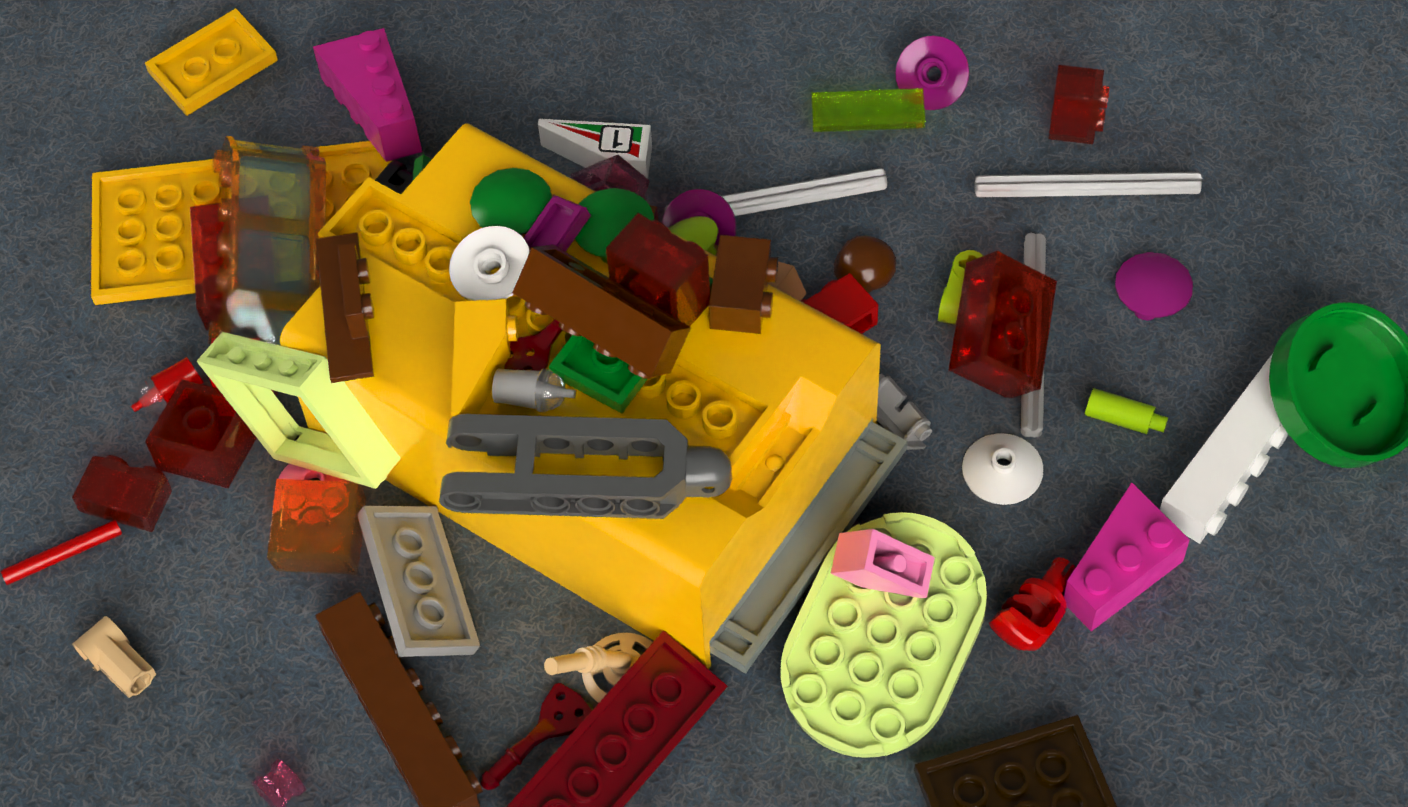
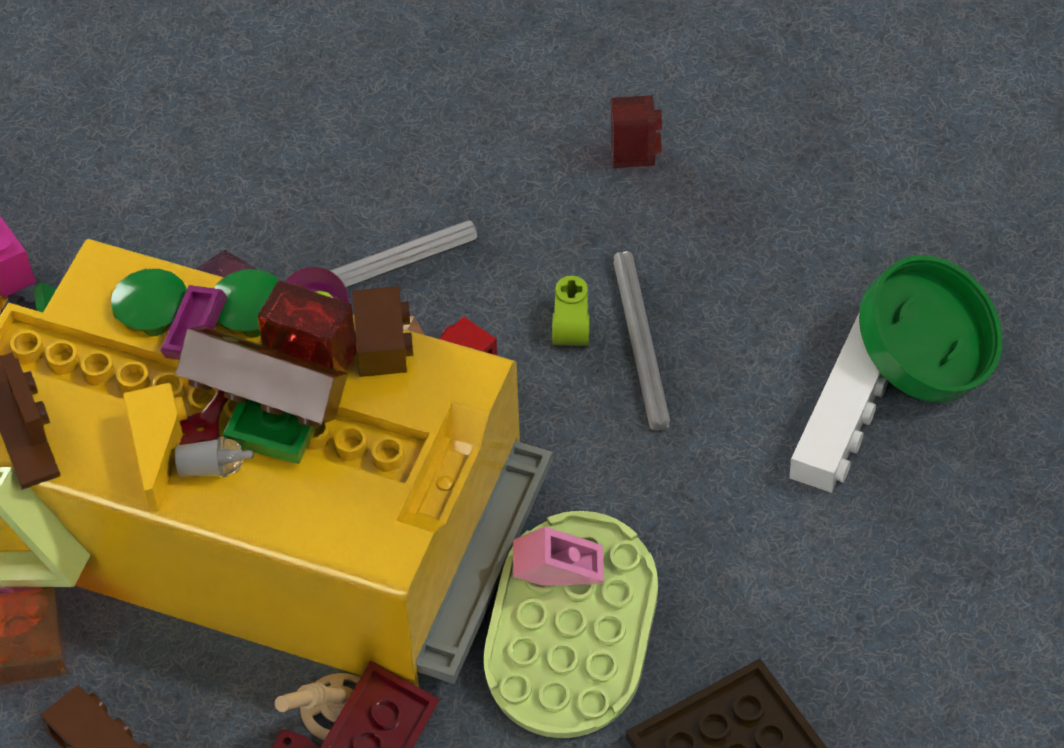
camera: 15 degrees left, 5 degrees down
(418, 581) = (129, 665): light grey plate -> none
(481, 253) = (137, 346): white dish -> none
(523, 493) = (228, 546): dark grey piece -> none
(597, 141) = (199, 243): white slope -> none
(867, 261) = (476, 302): reddish brown hair -> none
(868, 110) = (443, 171): clear neon green plate -> none
(905, 423) = (547, 436): light grey hinge -> none
(928, 53) = (482, 115): magenta dish -> none
(998, 482) = (641, 474): white dish -> none
(1003, 325) = (614, 335): clear red brick -> none
(1035, 611) = (702, 576): red piece -> none
(1088, 184) = (658, 201): axle -> none
(1124, 412) = (738, 392): lime cylinder -> none
(1124, 559) = (769, 517): dark pink wedge -> none
(1153, 285) = (738, 278): magenta dish -> none

